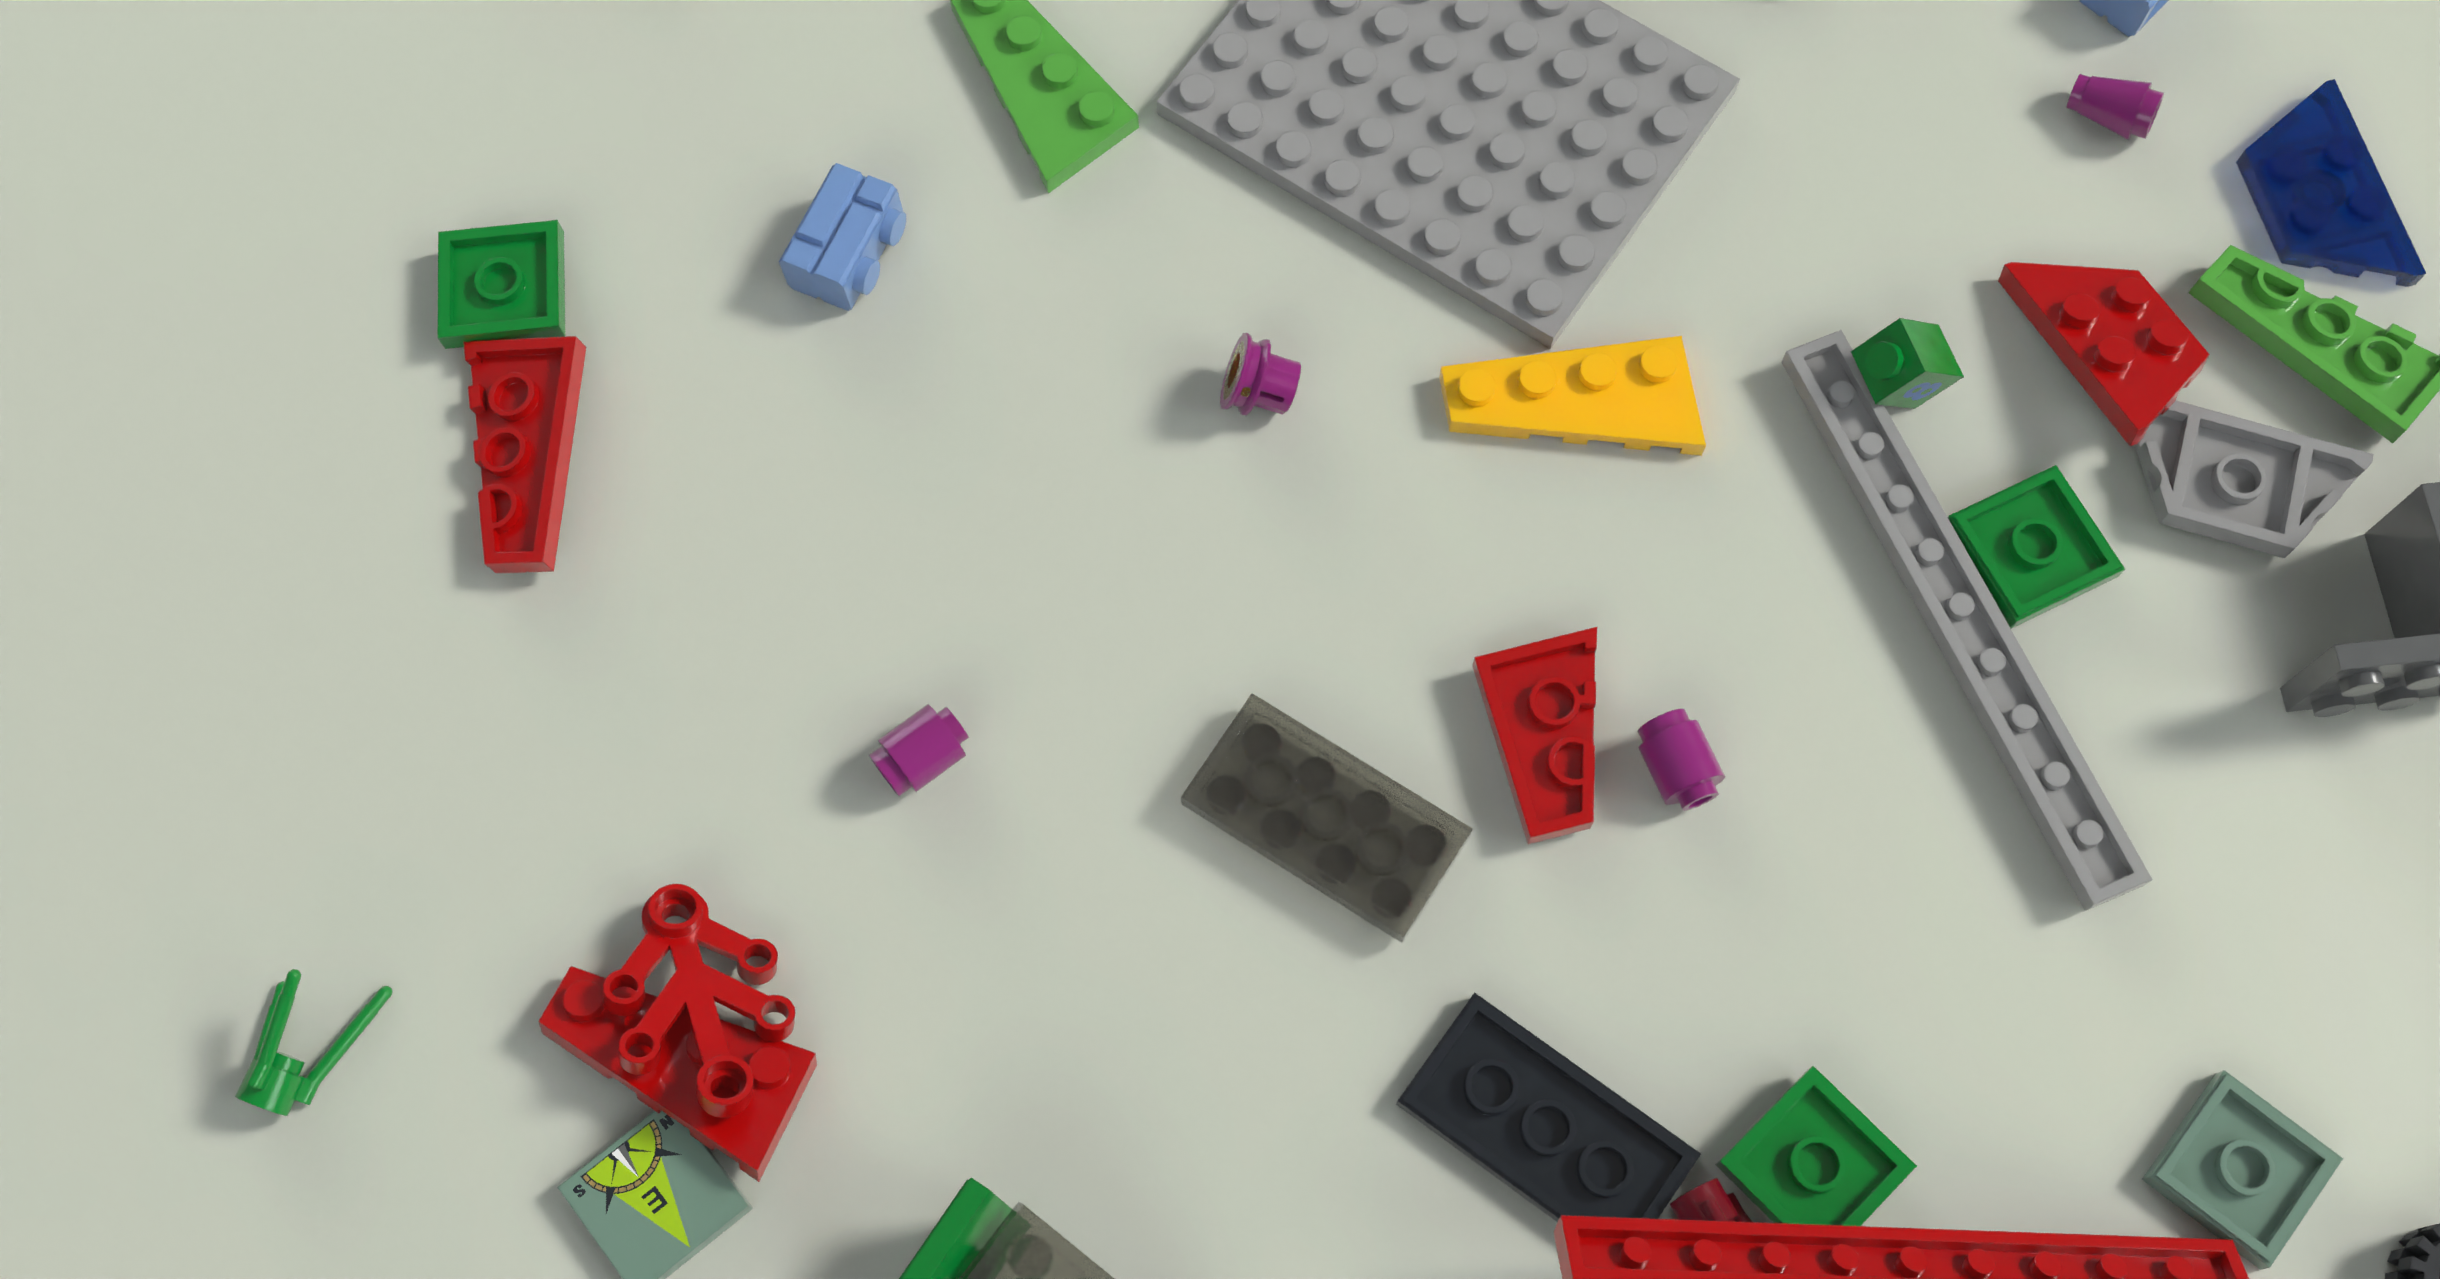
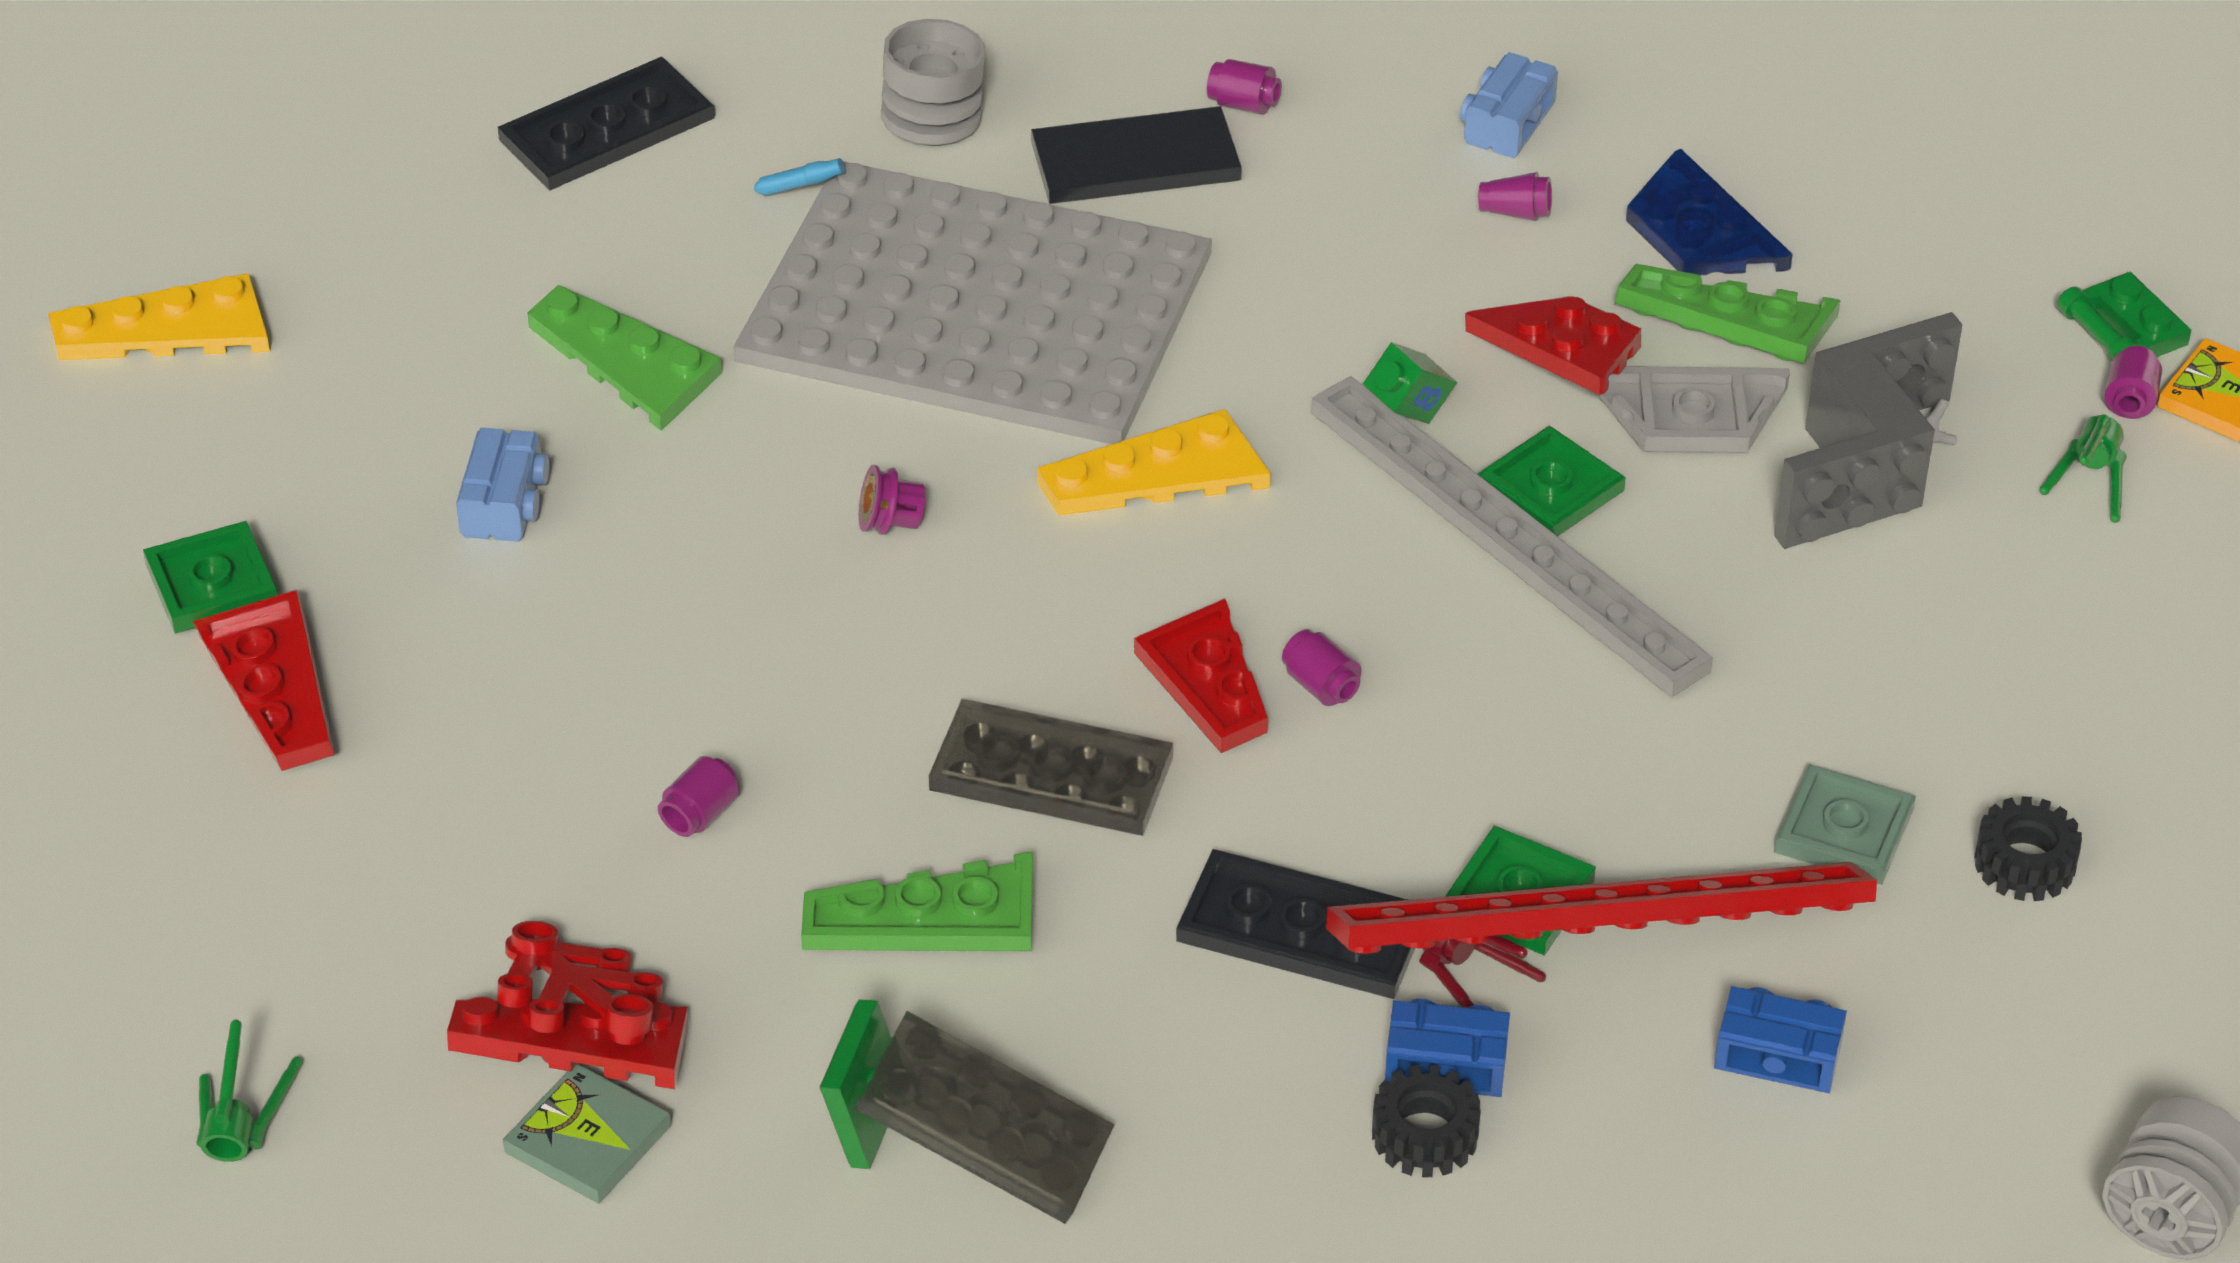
camera: 20 degrees left, 25 degrees down
(1143, 996) = (948, 912): none -> bright green wing

